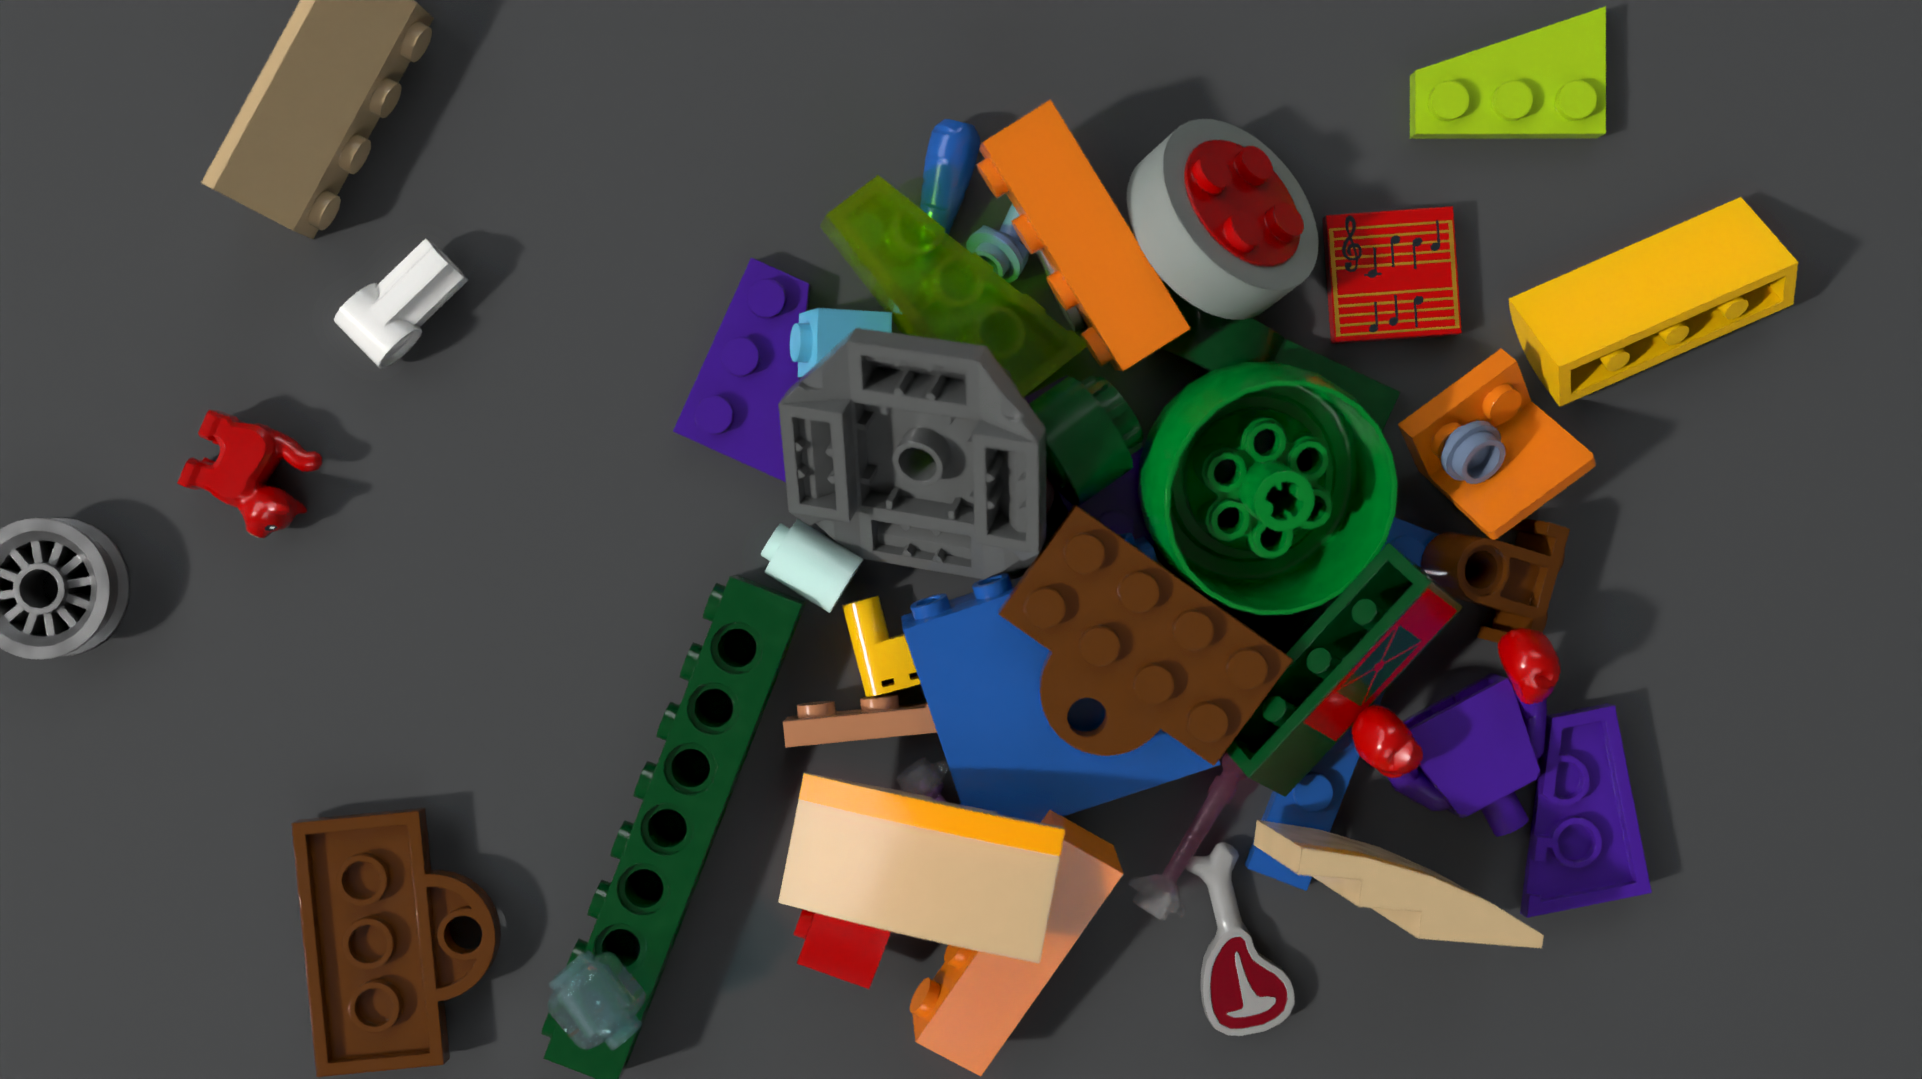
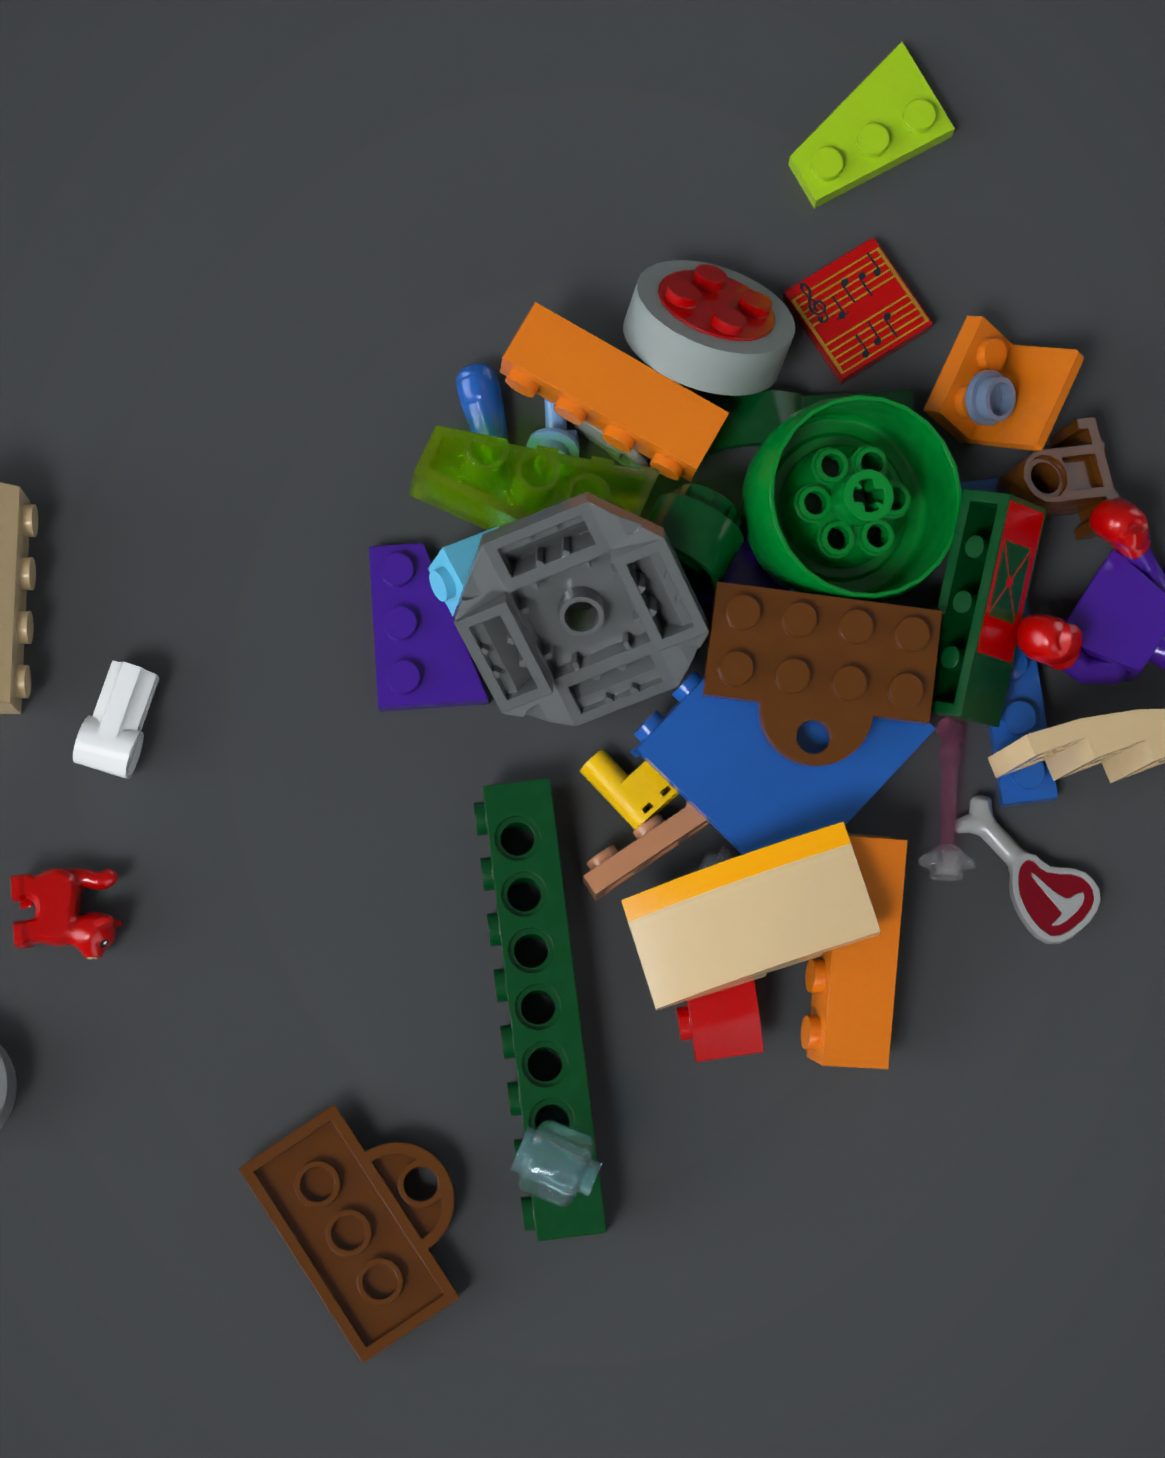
camera: 25 degrees left, 10 degrees down
(810, 563) = (538, 750): light aqua brick -> none
(1653, 300) = (1059, 227): yellow brick -> none

